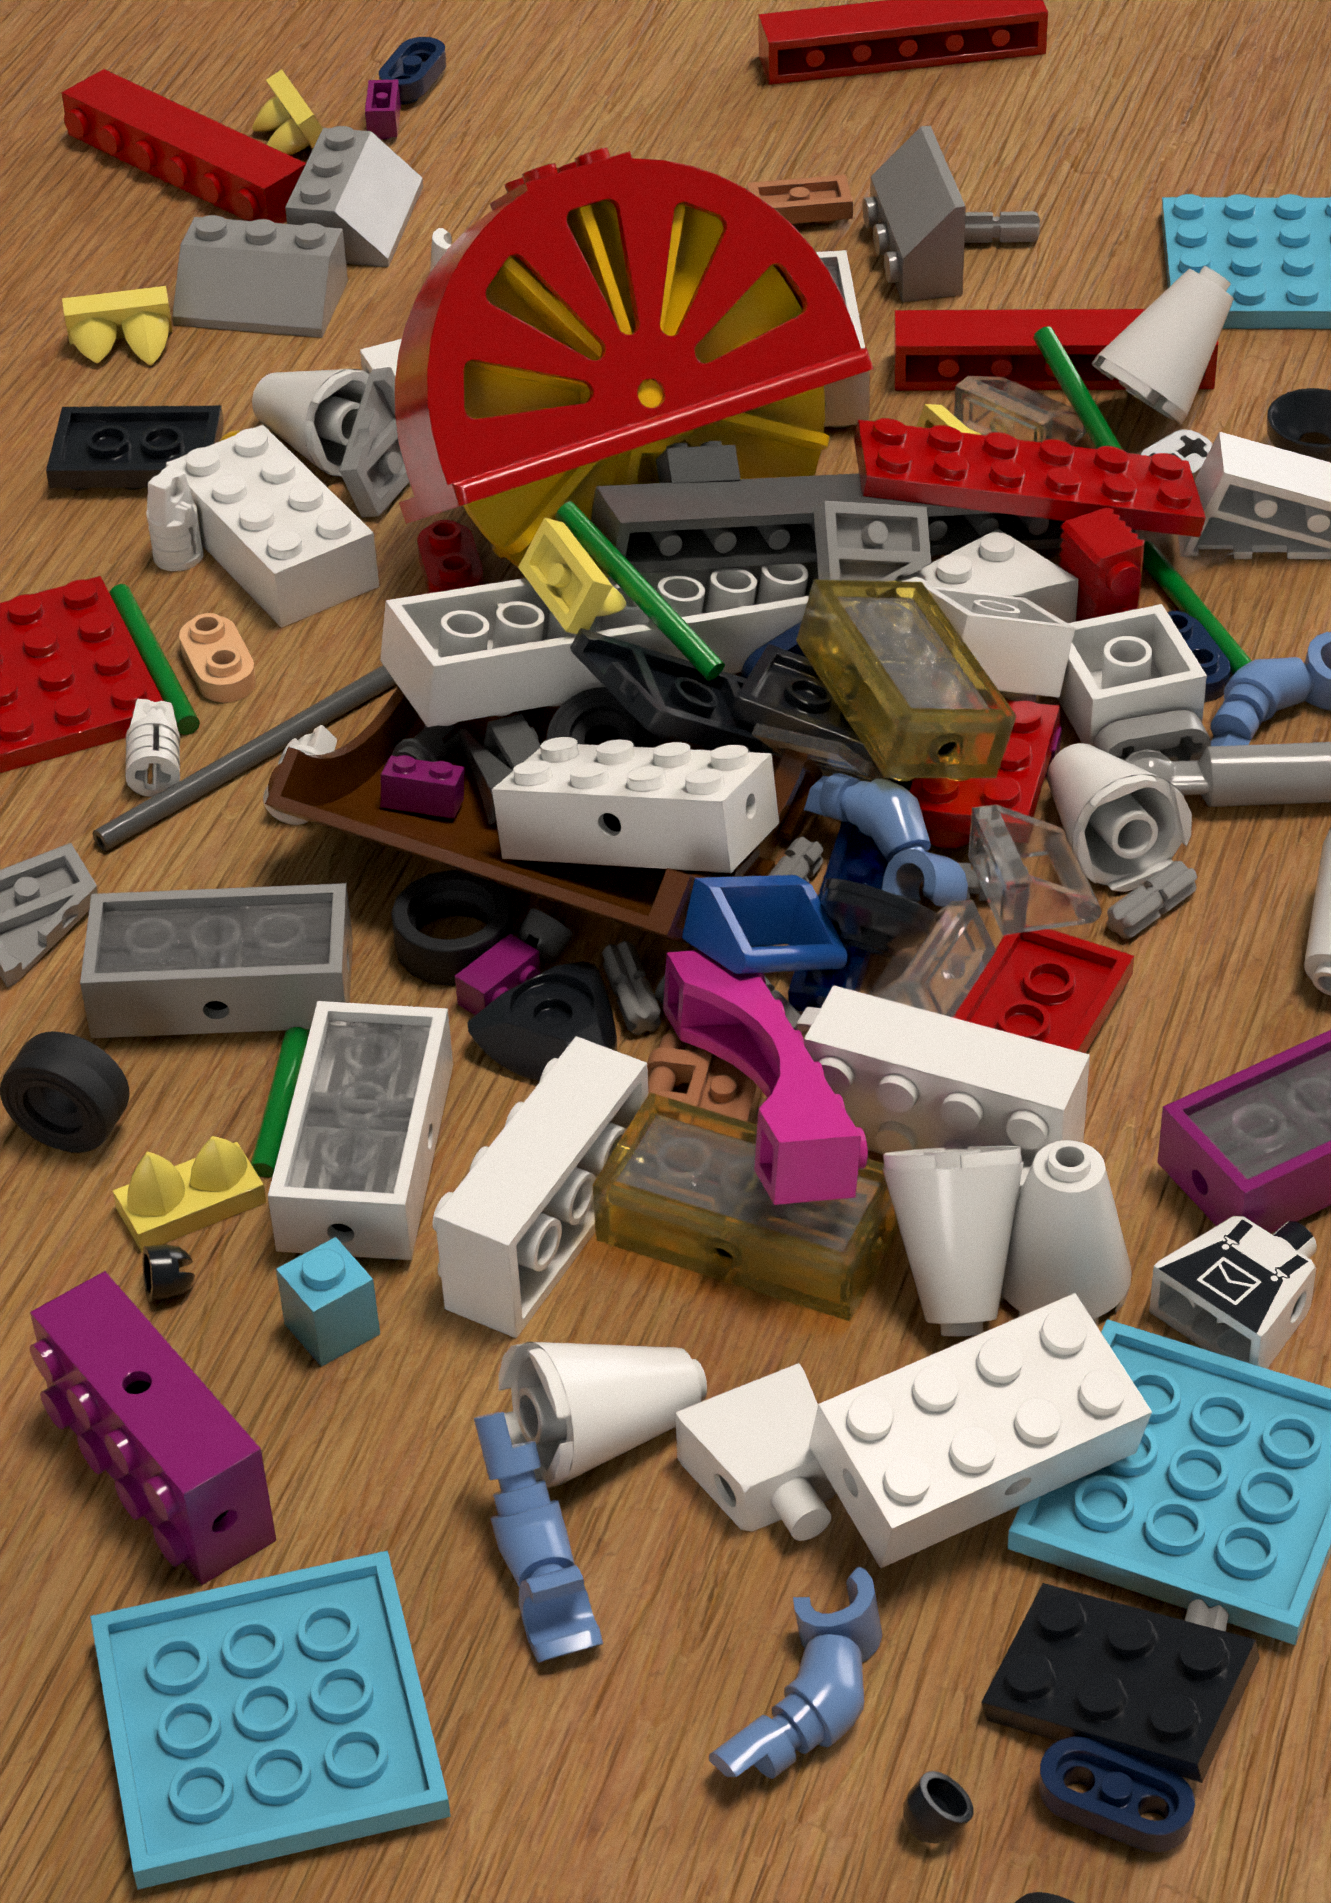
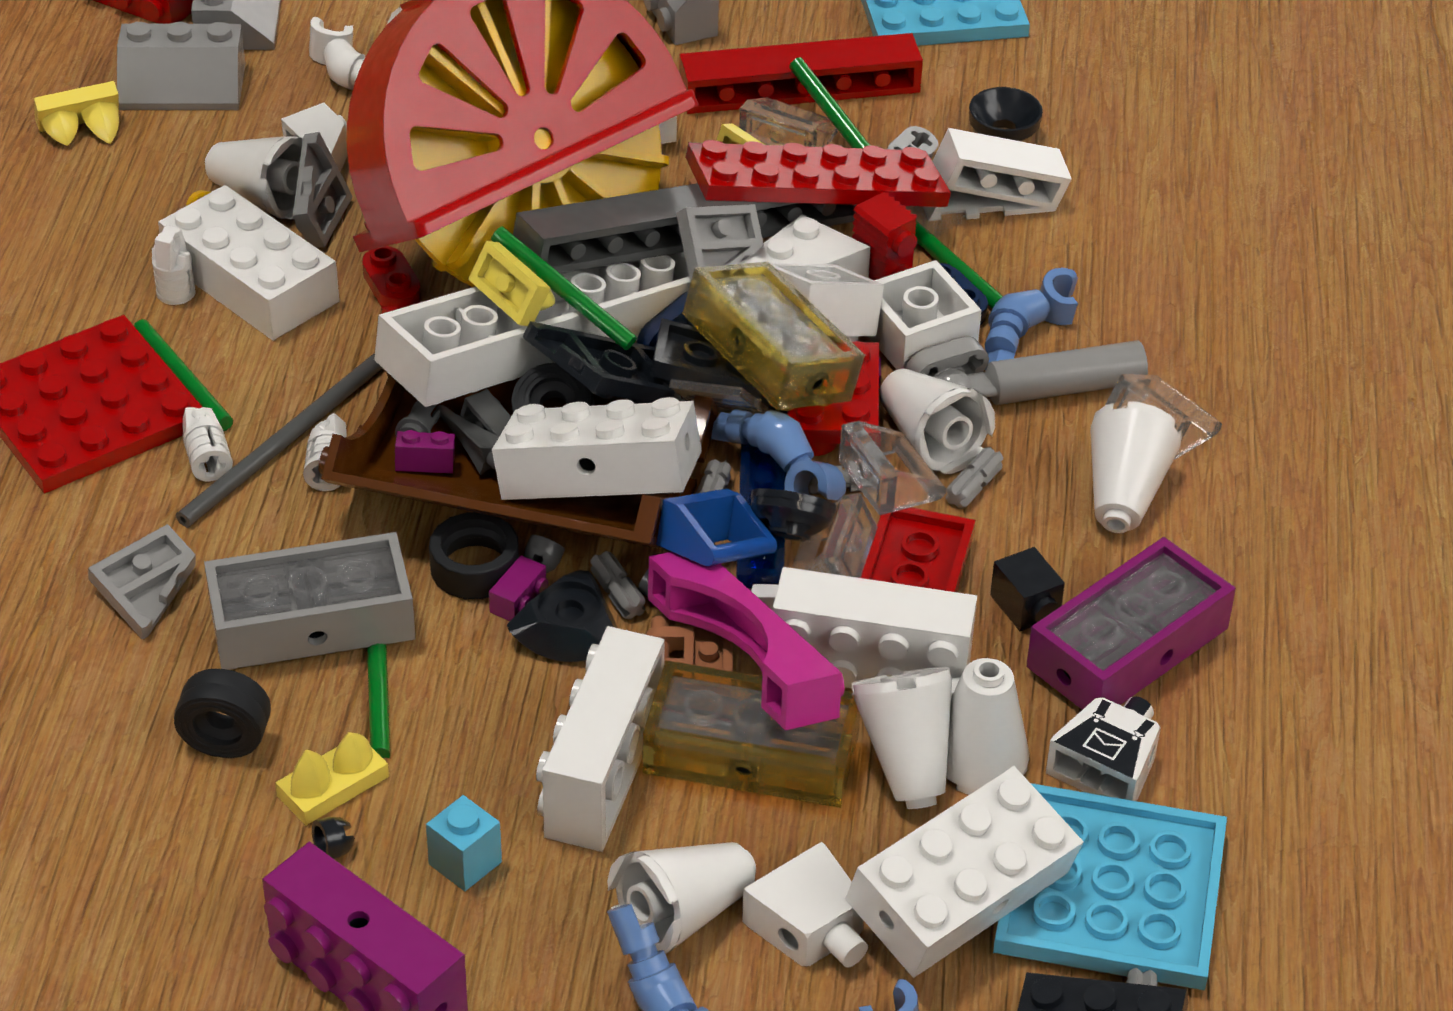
camera: 15 degrees left, 0 degrees up
(126, 443) = (116, 209): black plate -> none
(217, 658) = (232, 369): light nougat plate -> none
(362, 1129) = (455, 713): brick -> none
(698, 464) = (584, 188): dark grey piece -> none
(1170, 343) = (892, 63): white cone -> none
(1180, 1051) = (1026, 587): none -> black brick

